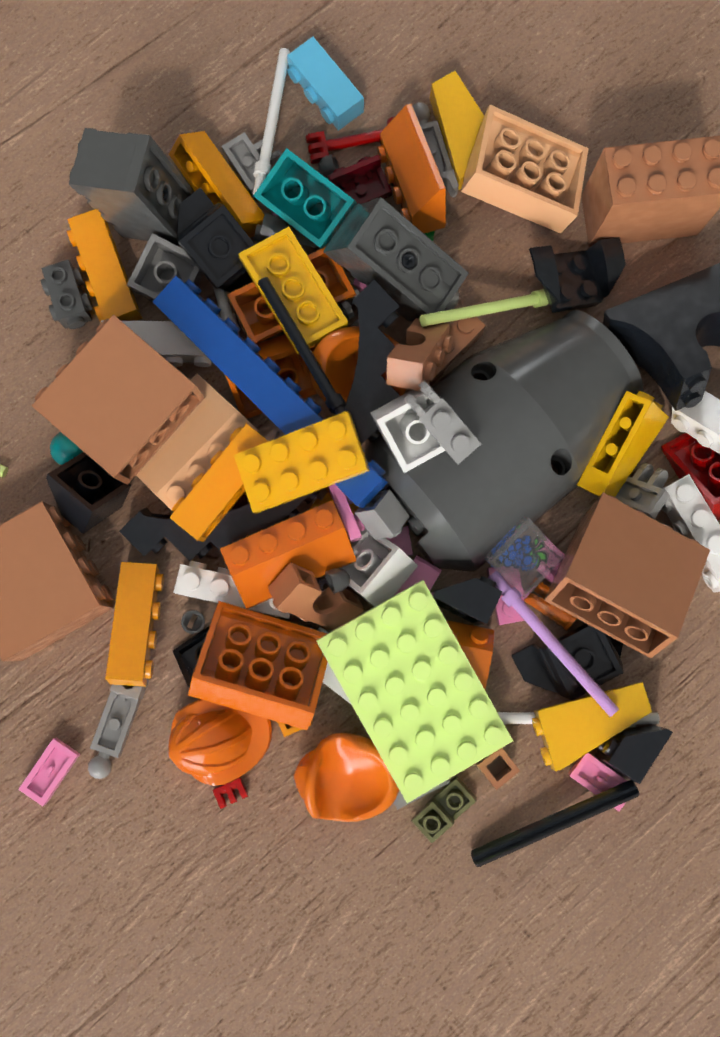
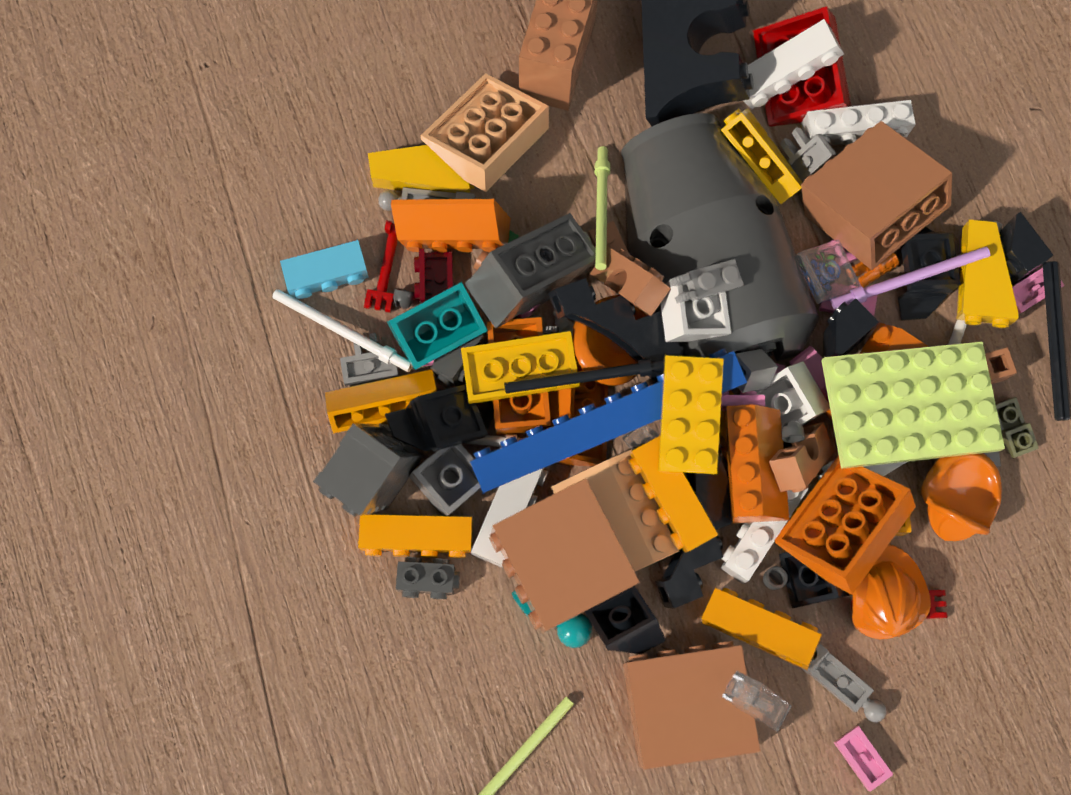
camera: 70 degrees left, 5 degrees down
(44, 637) = (757, 700): none -> clear slope
(578, 277) = (596, 125): black piece -> none

